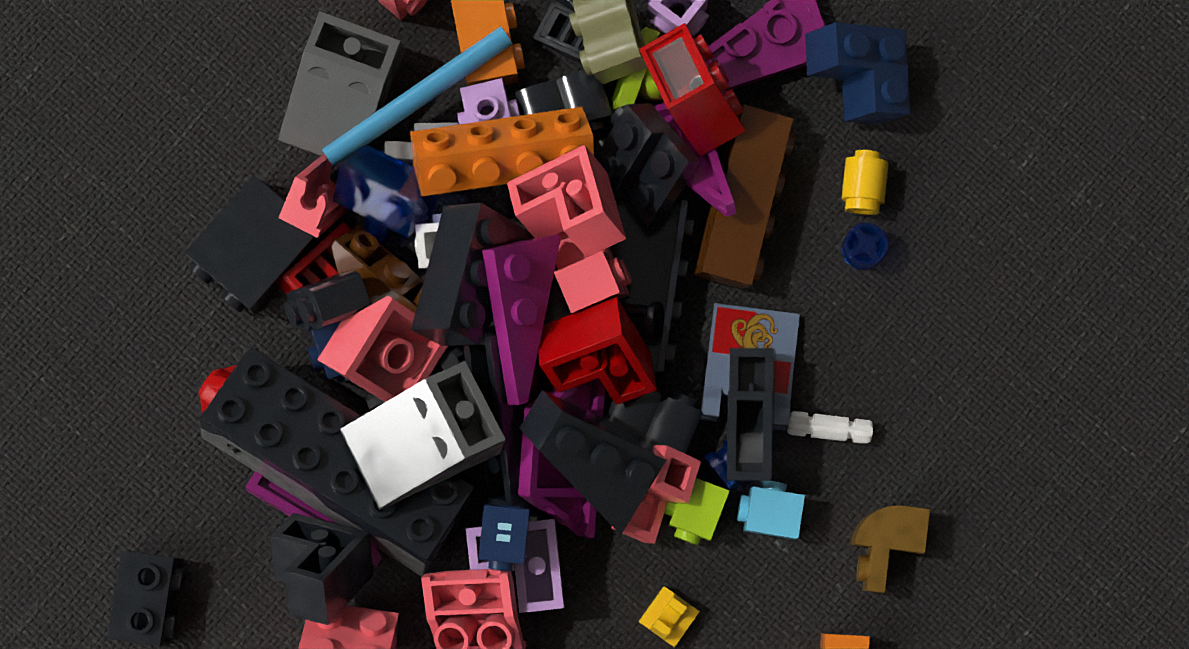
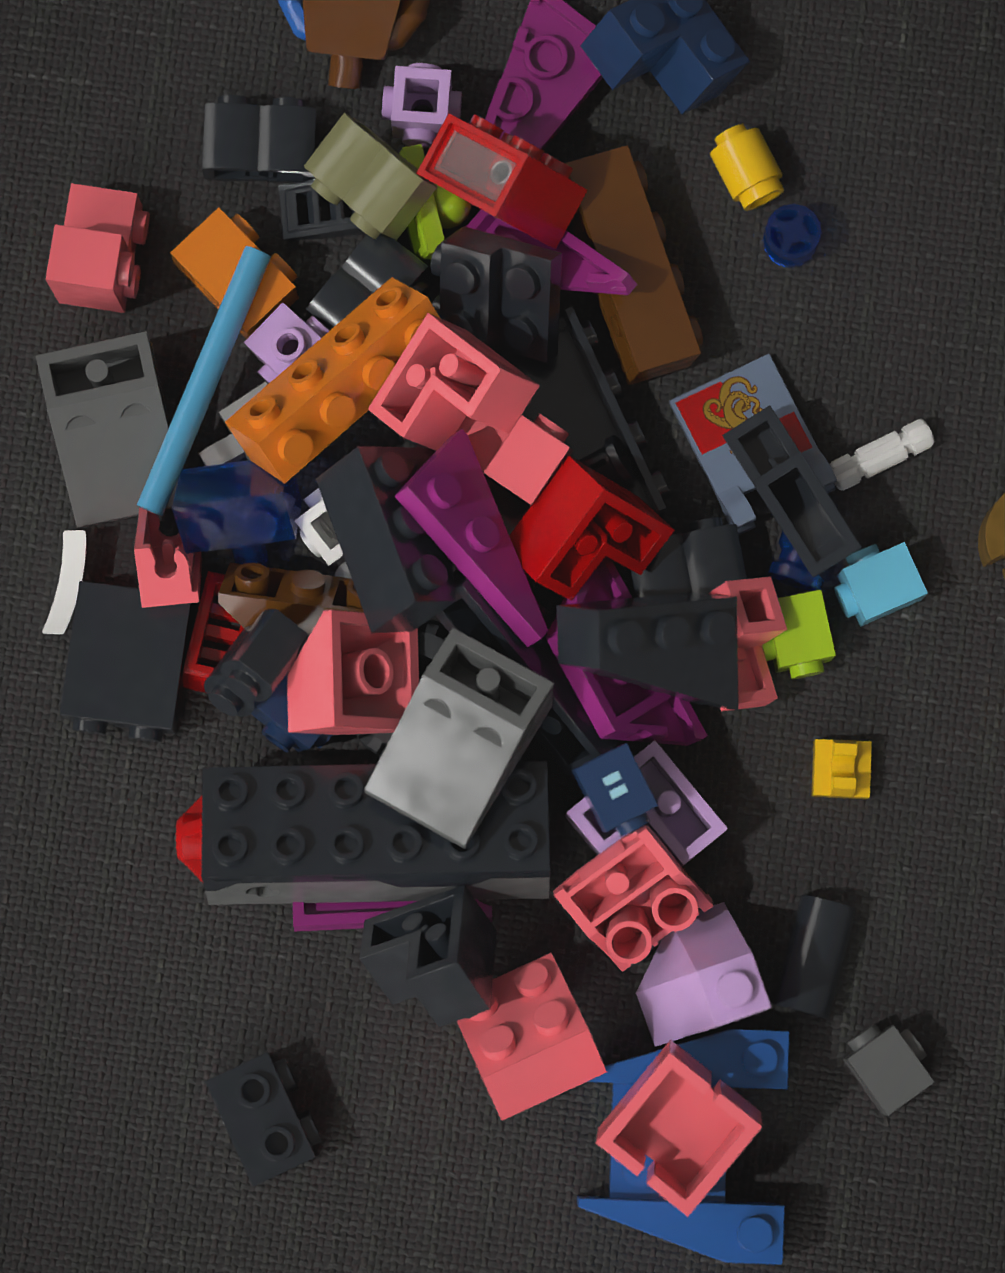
camera: 35 degrees left, 0 degrees up
(255, 167) = (71, 573): none -> white sticker

